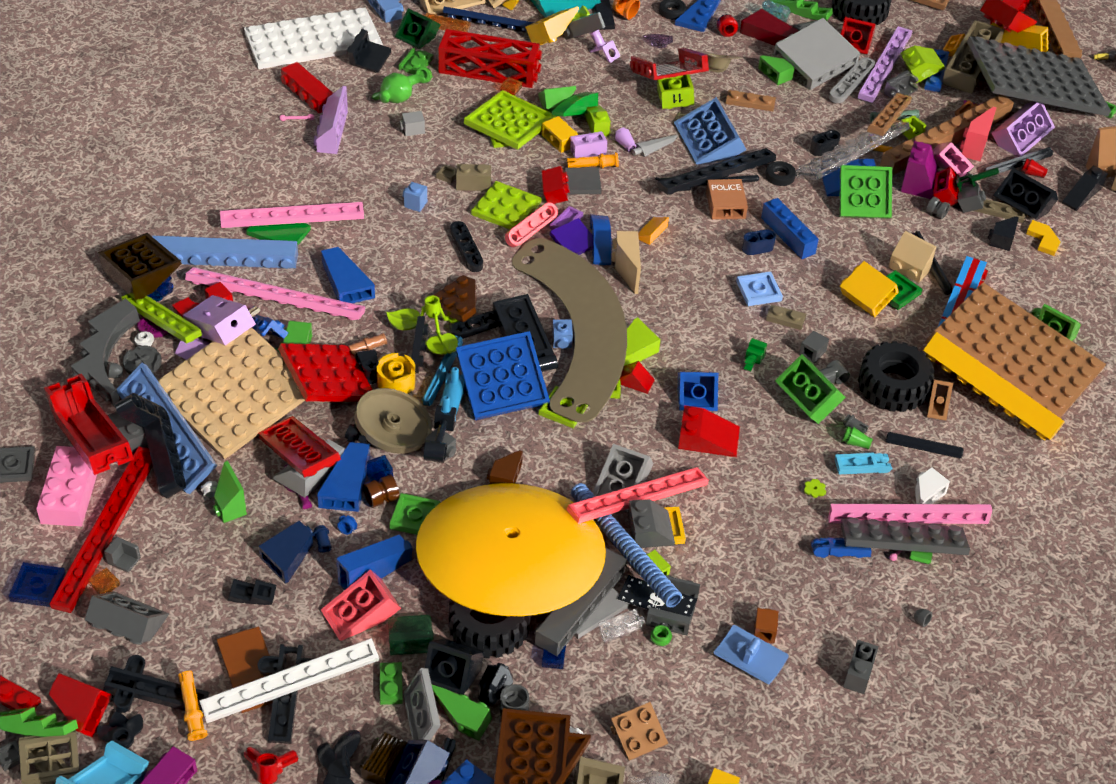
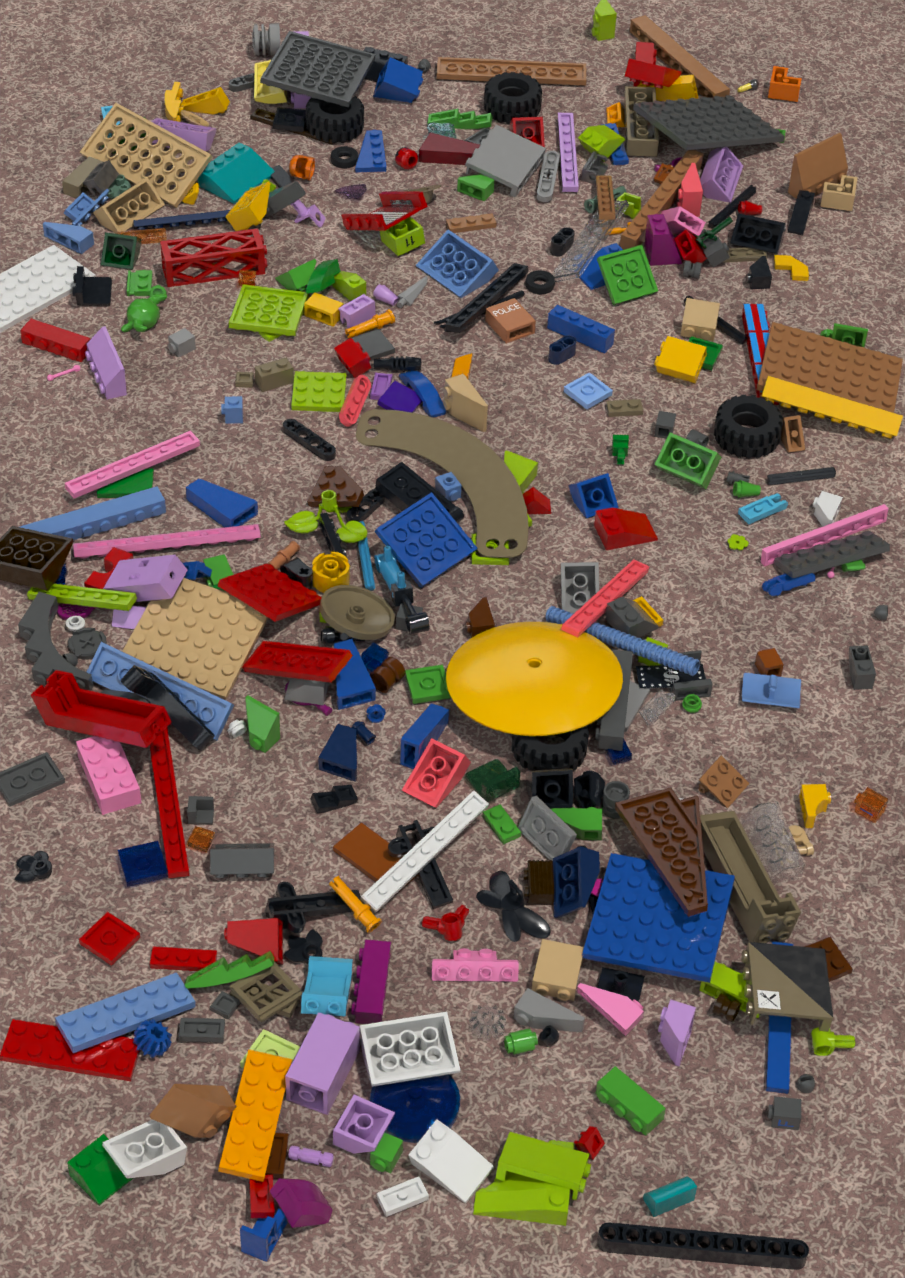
camera: 25 degrees left, 0 degrees up
(595, 204) = (397, 363): none -> black hinge

